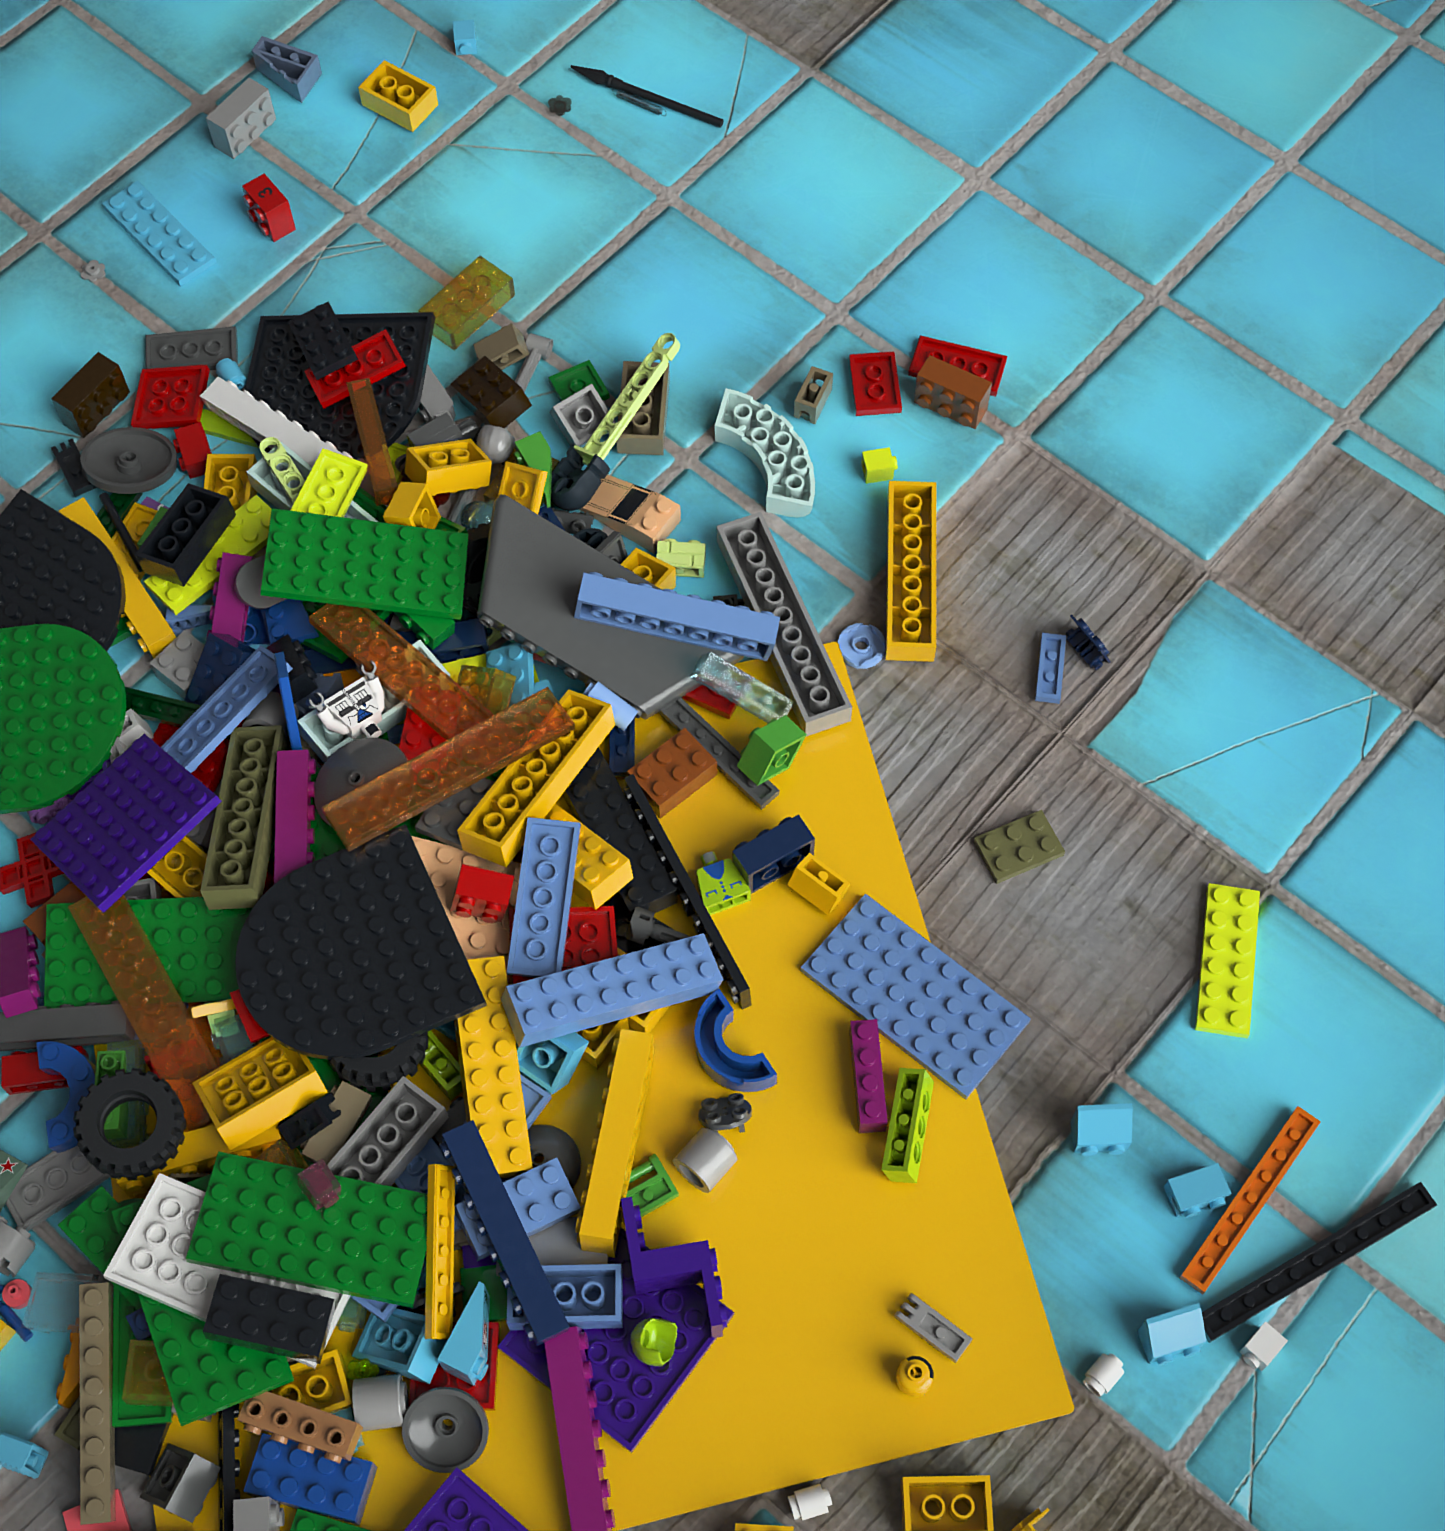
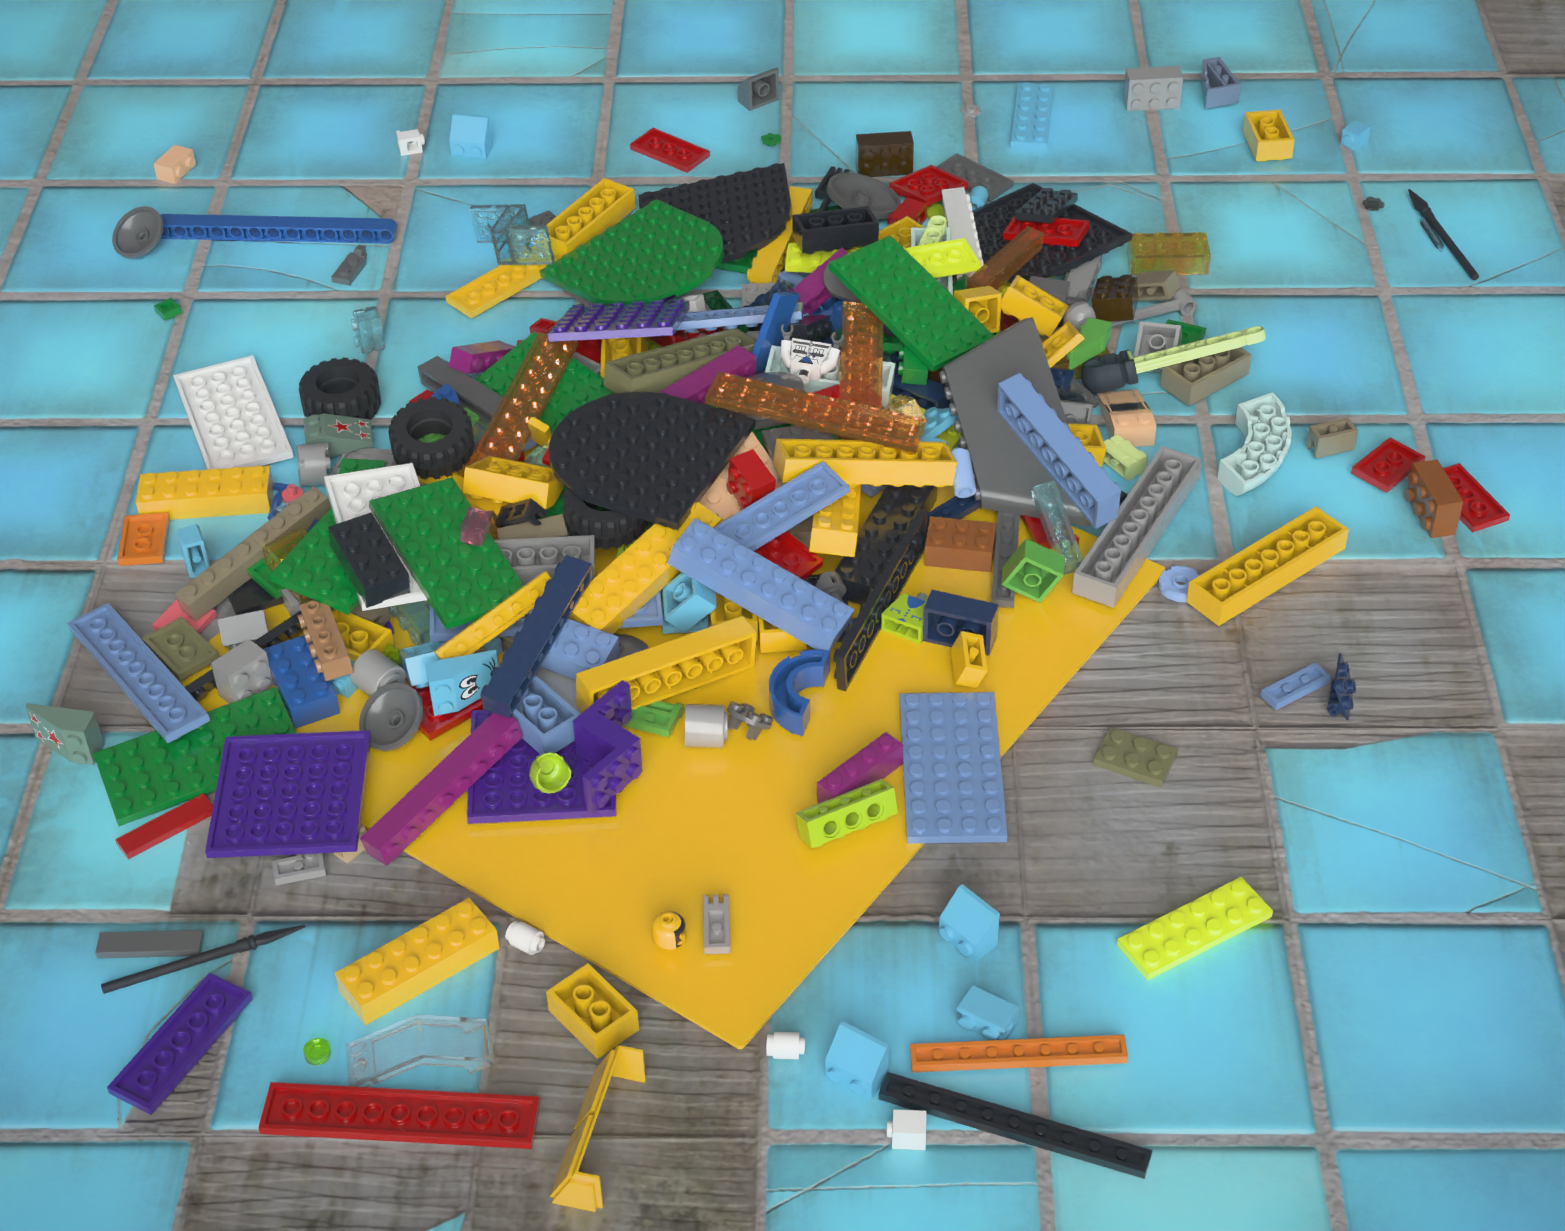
camera: 50 degrees right, 20 degrees down
(268, 208) = (1108, 136): red brick -> none
(878, 465) = (1328, 501): neon yellow brick -> none

